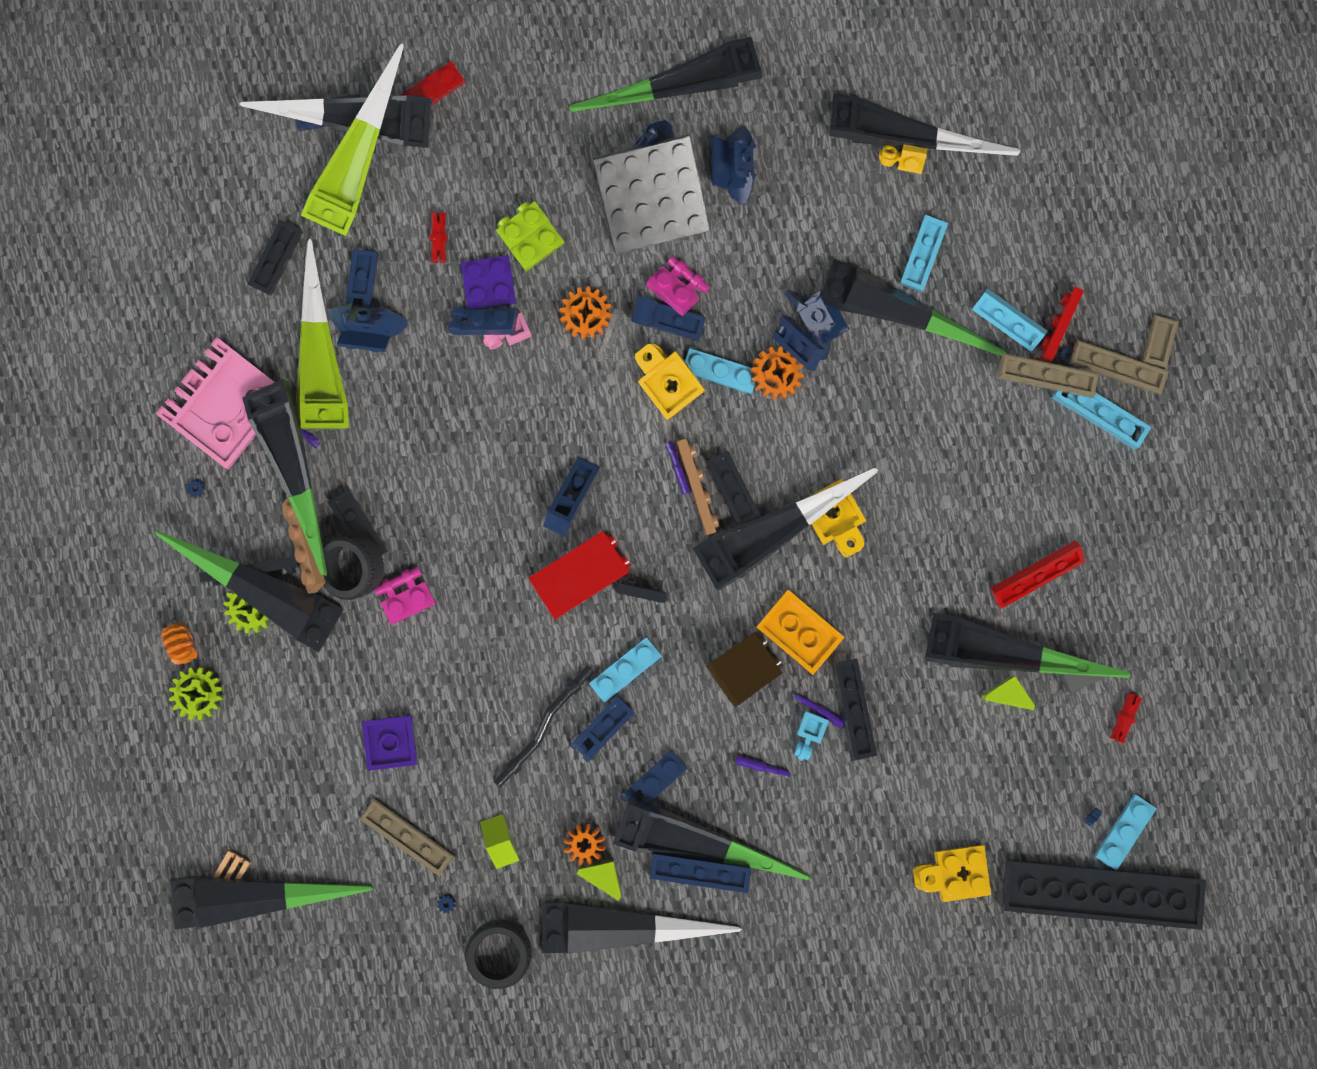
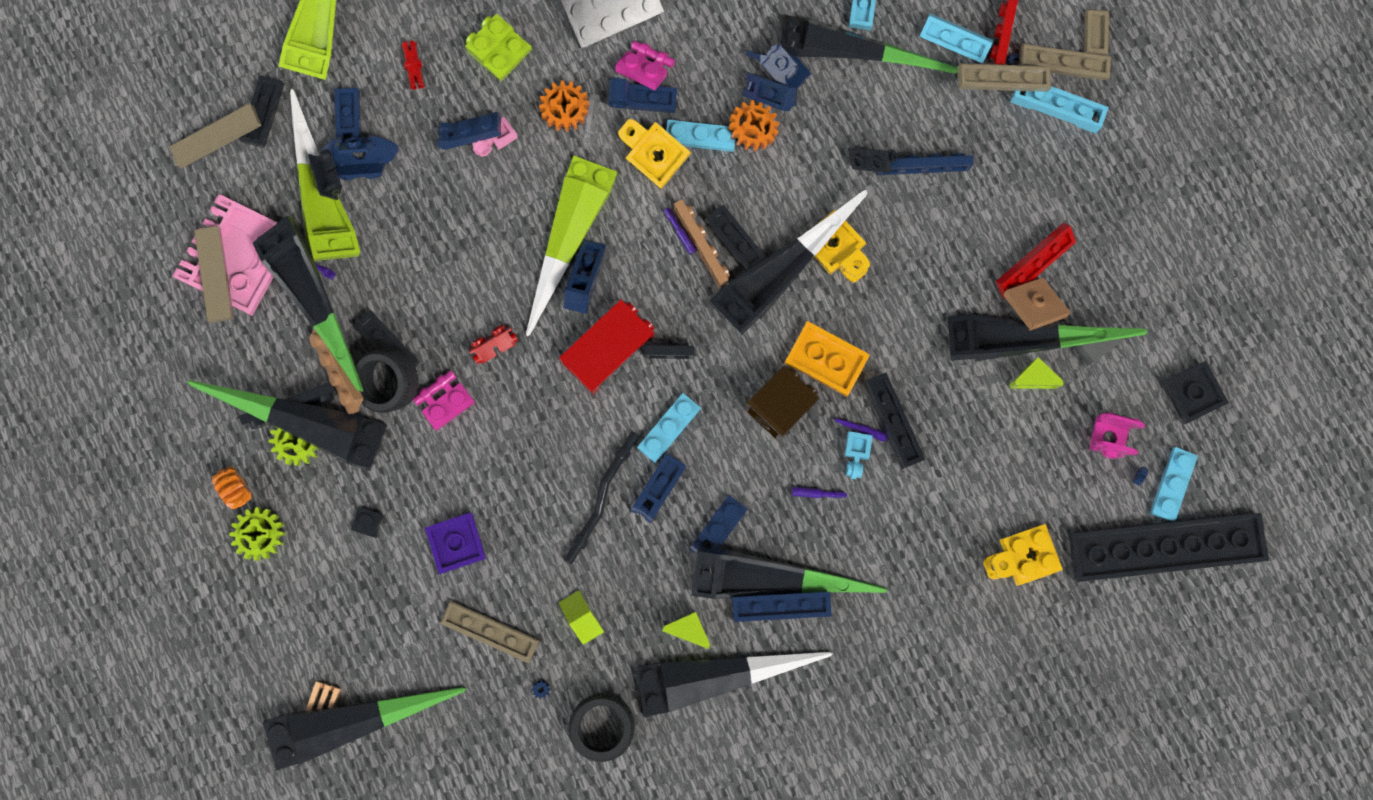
camera: 20 degrees left, 5 degrees down
(191, 488) = (223, 335): dark blue piece -> none
(198, 421) = (214, 274): none -> dark tan tile
(224, 275) = (215, 135): none -> dark tan tile
(306, 703) = (367, 522): none -> black plate
(328, 349) = (327, 182): none -> black hinge
(455, 549) = (499, 338): none -> hinge
(488, 283) = (468, 96): dark purple plate -> none
(578, 837) = (669, 608): orange gear -> none
(583, 416) = (579, 203): none -> lime plate
(891, 435) = (872, 159): none -> black hinge
(935, 447) = (933, 164): none -> dark blue plate
(1027, 620) = (1036, 303): none -> medium nougat plate
(1084, 765) = (1119, 426): none -> dark pink piece
(1126, 718) = (1148, 377): red pin -> none
(1169, 743) = (1195, 392): none -> black plate

